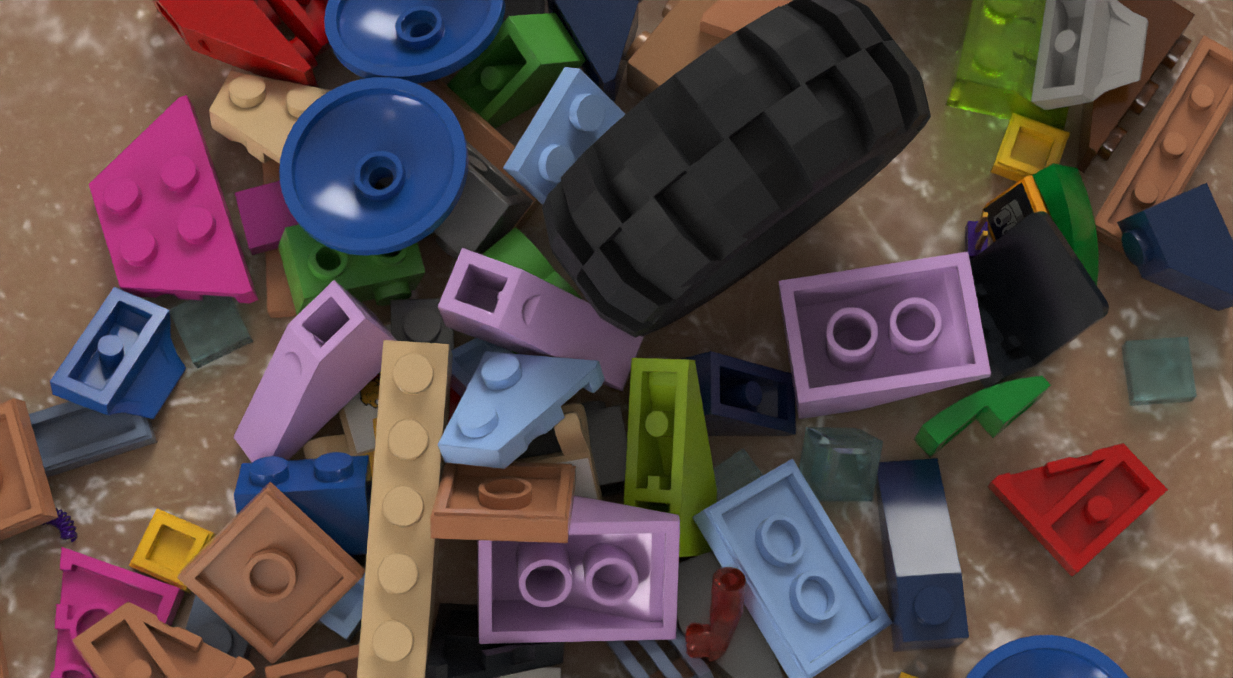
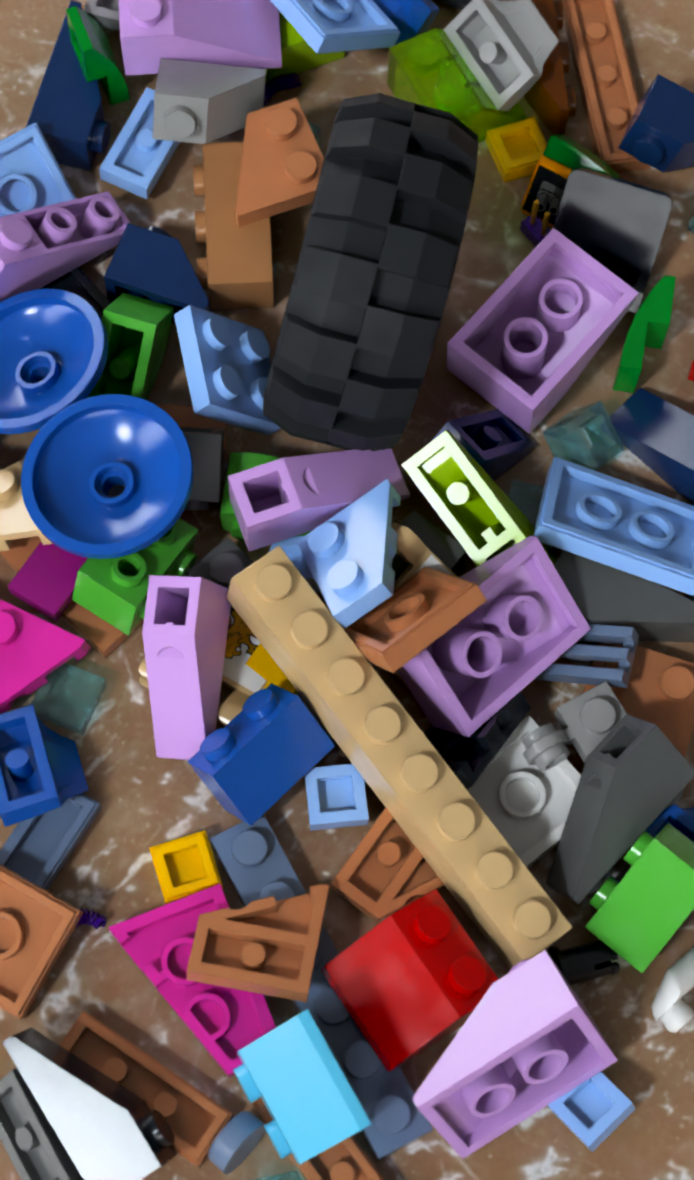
camera: 45 degrees left, 5 degrees down
(271, 573) = (282, 811): nougat tile -> none
(725, 612) = (616, 598): clear red arm -> none

